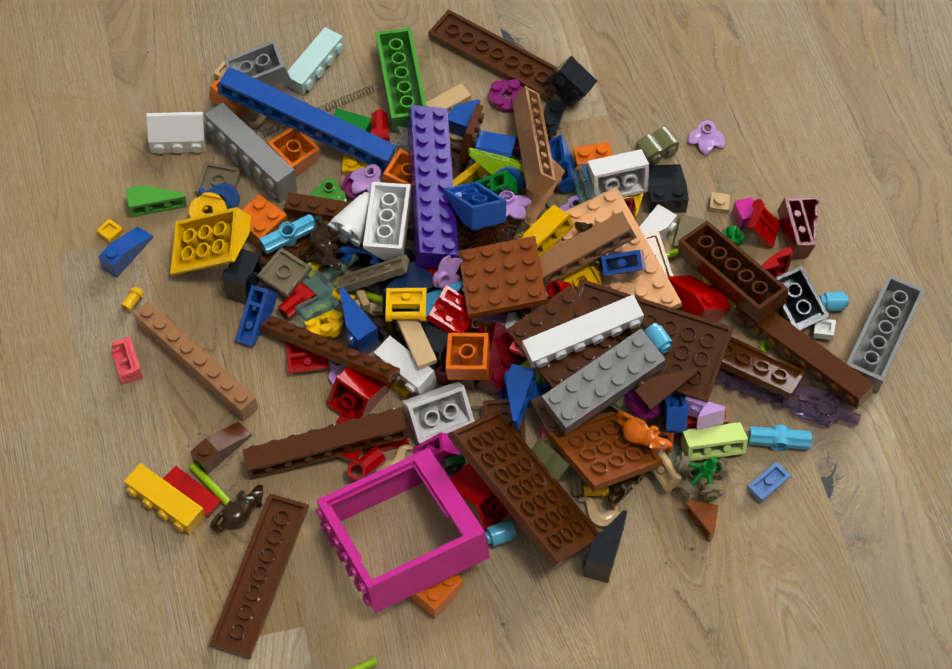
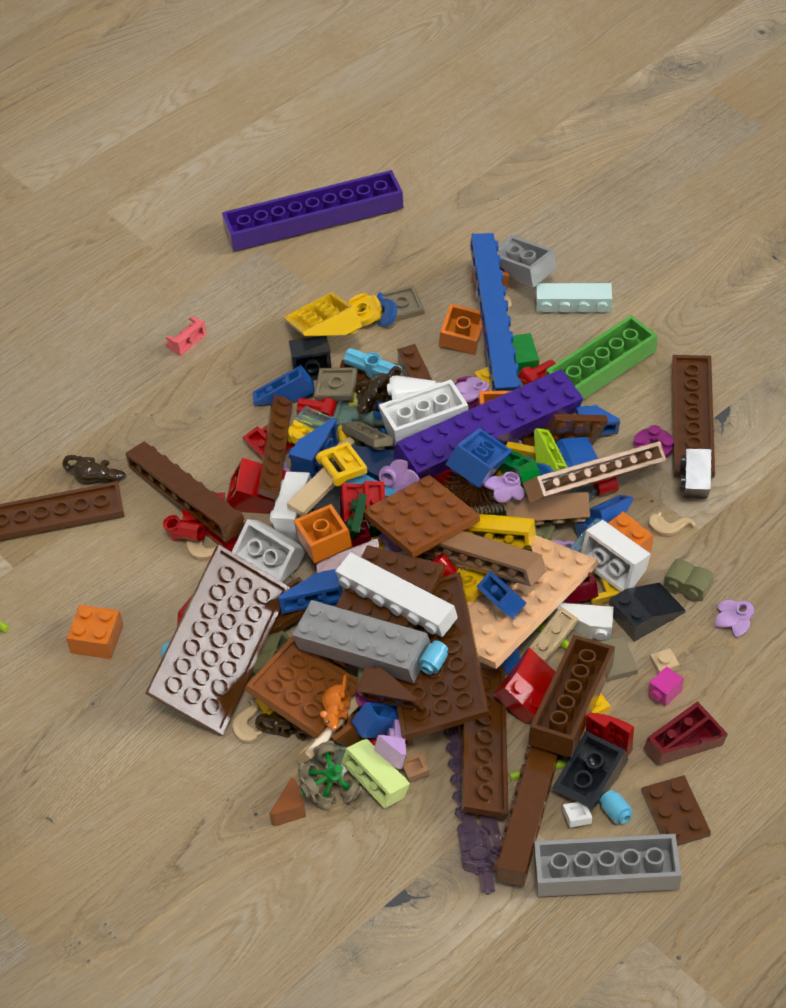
camera: 65 degrees right, 10 degrees down
(53, 189) = (312, 210): none -> dark purple brick
(109, 231) = (302, 265): yellow tile -> none
(123, 251) = (284, 280): blue slope -> none
(133, 297) = (247, 309): yellow pin -> none
(150, 200) = (345, 269): bright green slope -> none
(164, 499) = (72, 420): yellow brick -> none
(177, 132) = (422, 251): white slope -> none
(193, 490) = (93, 434): red tile -> none
(196, 361) = (211, 375): medium nougat brick -> none
(209, 483) = (108, 441): lime bar -> none
(219, 446) = (140, 428): reddish brown slope -> none
(250, 152) = (442, 290): light grey brick -> none
(264, 219) = (380, 340): orange brick -> none
(325, 106) = (536, 331): dark tan piece -> none
(333, 193) = (444, 373): bright green plate -> none
(419, 572) = (146, 610): dark pink door -> none
(450, 98) = (619, 408): tan tile -> none
(466, 320) = (357, 507): none -> dark green plate
(553, 115) = (651, 489): black hinge -> none
(593, 134) = (663, 528): none -> tan piece
(600, 557) = (205, 736): black slope -> none
(734, 235) = (626, 687): green gear -> none
(764, 224) = (652, 704): red plate -> none
(768, 482) = (364, 842): medium blue plate -> none
(780, 437) = (421, 830): medium azure piece -> none
(854, 268) = (676, 810): none -> reddish brown plate

